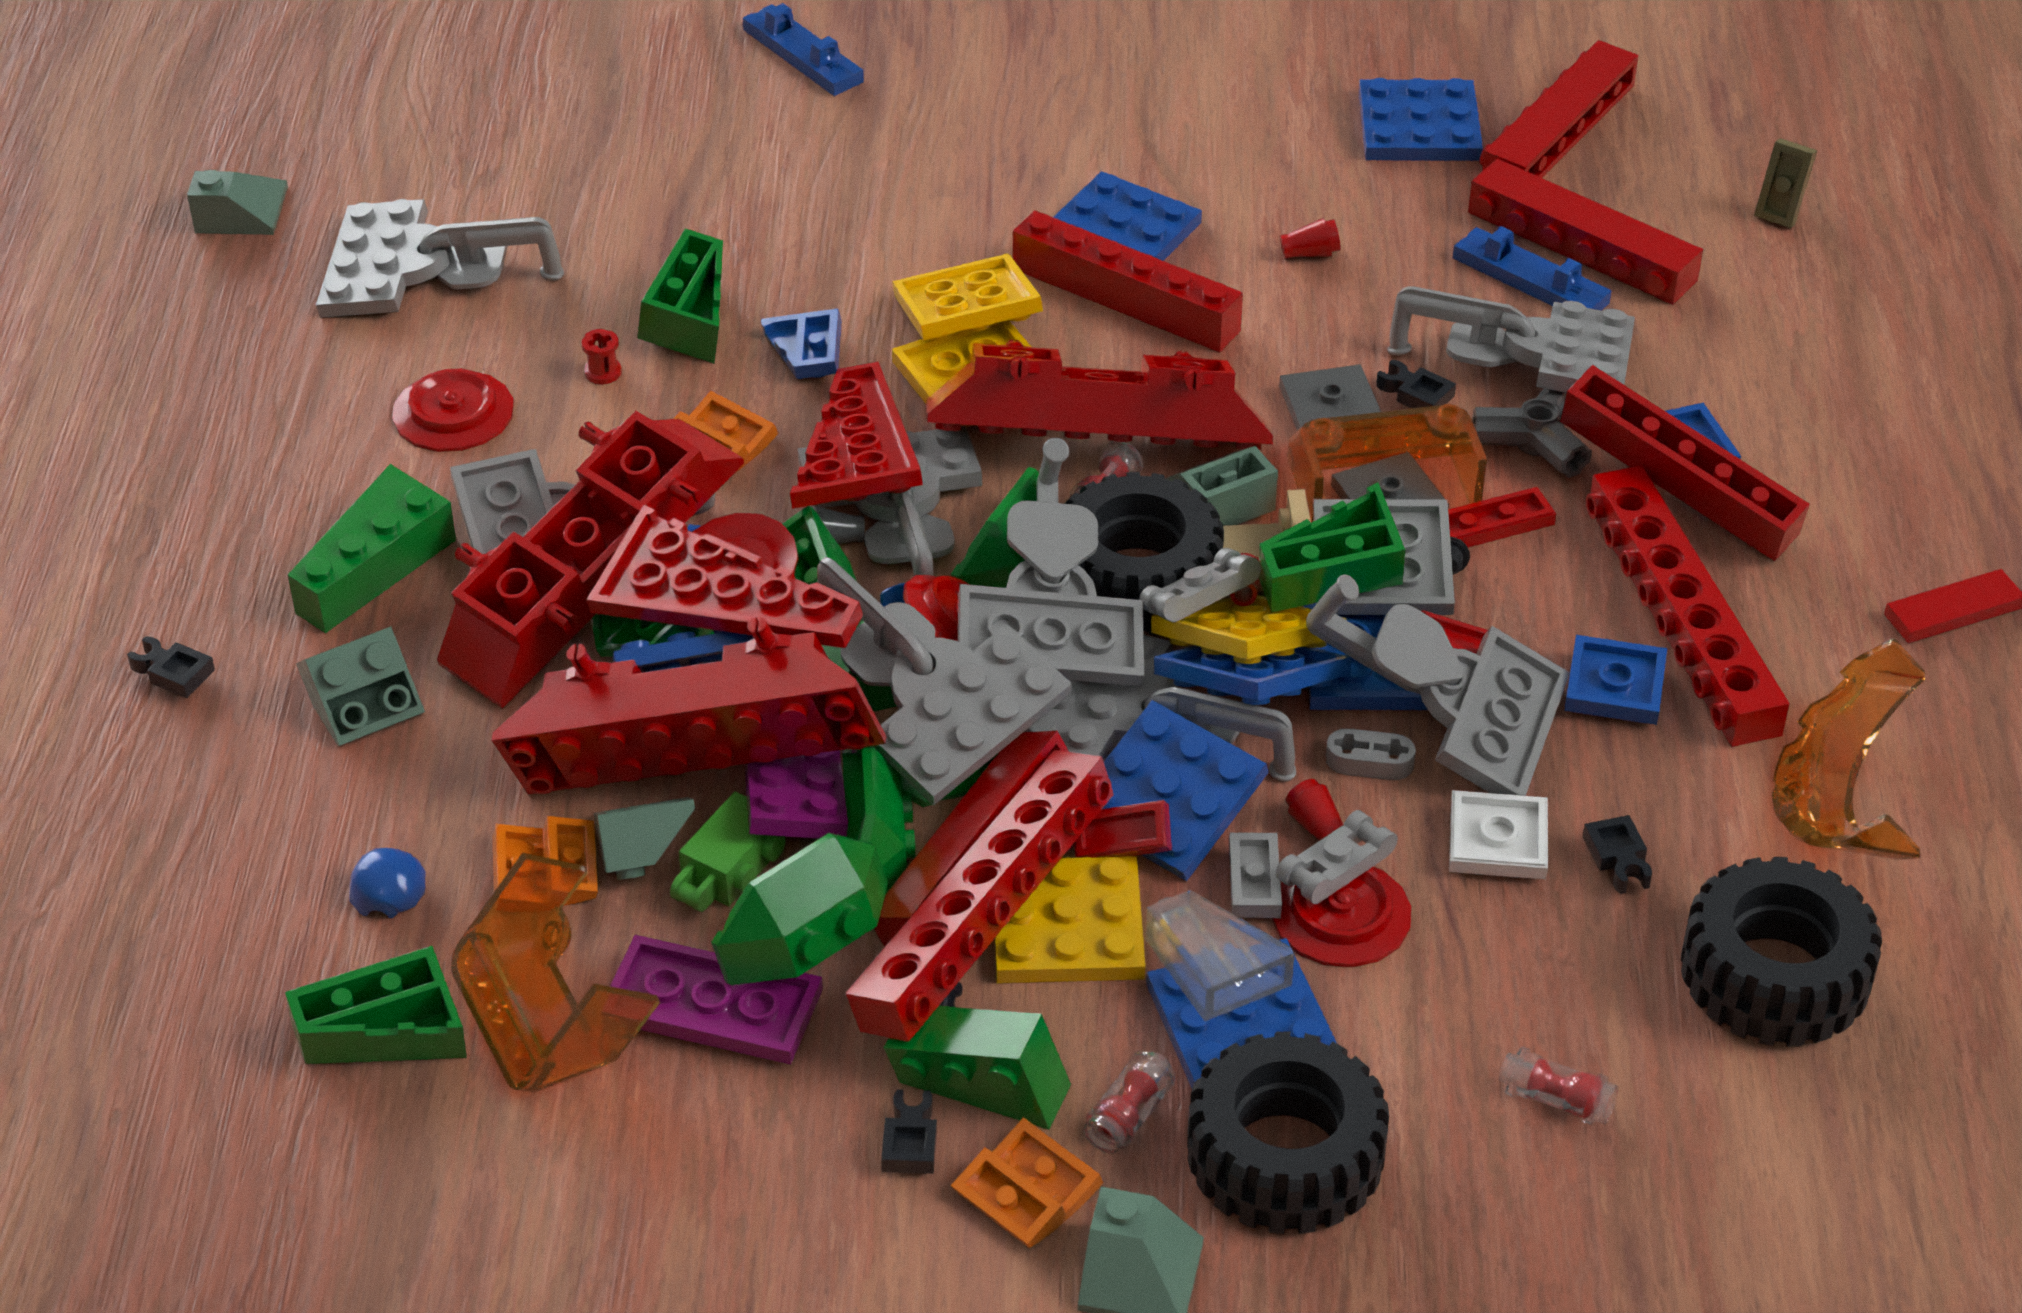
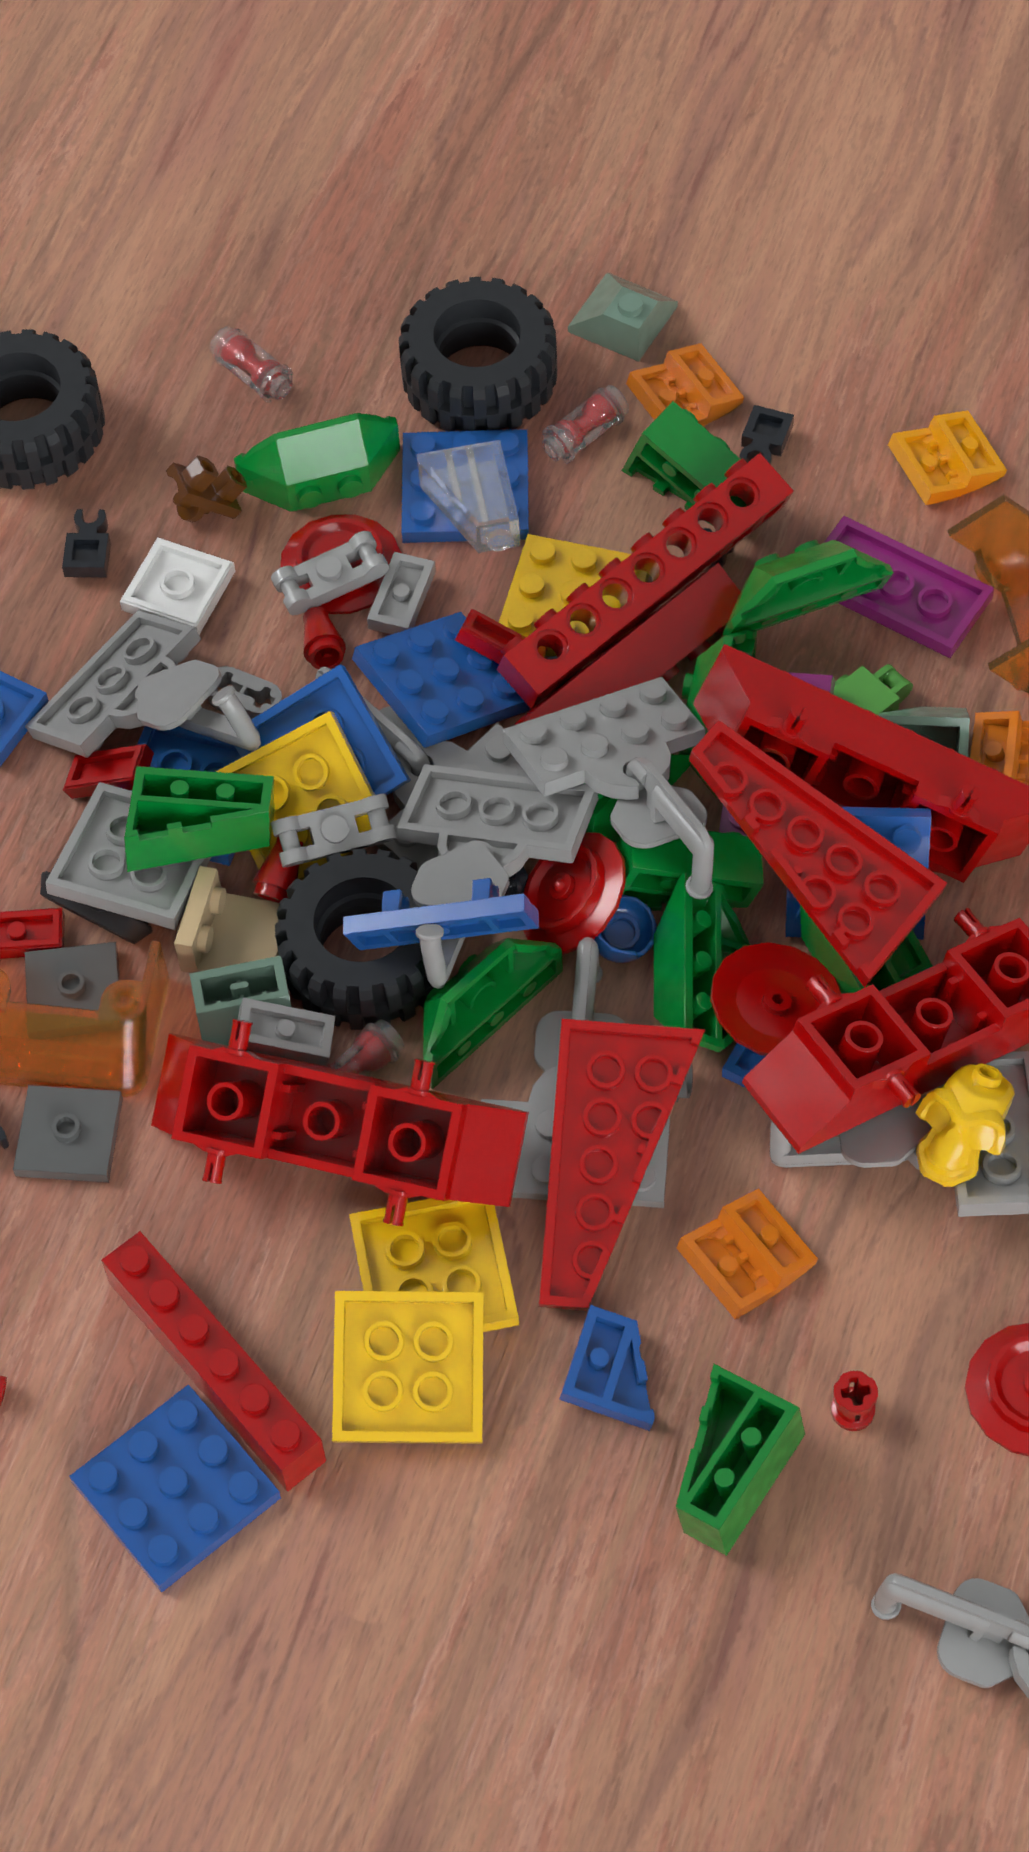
camera: 160 degrees left, 15 degrees up
(532, 487) = (963, 1120): none -> yellow head
(685, 1170) = (947, 457): none -> light orange slope
(1053, 480) = (480, 916): none -> blue hinge
(1173, 450) = (288, 1031): none -> light grey plate
(1418, 978) = (320, 461): none -> green wedge
(1522, 913) = (205, 490): none -> reddish brown hips

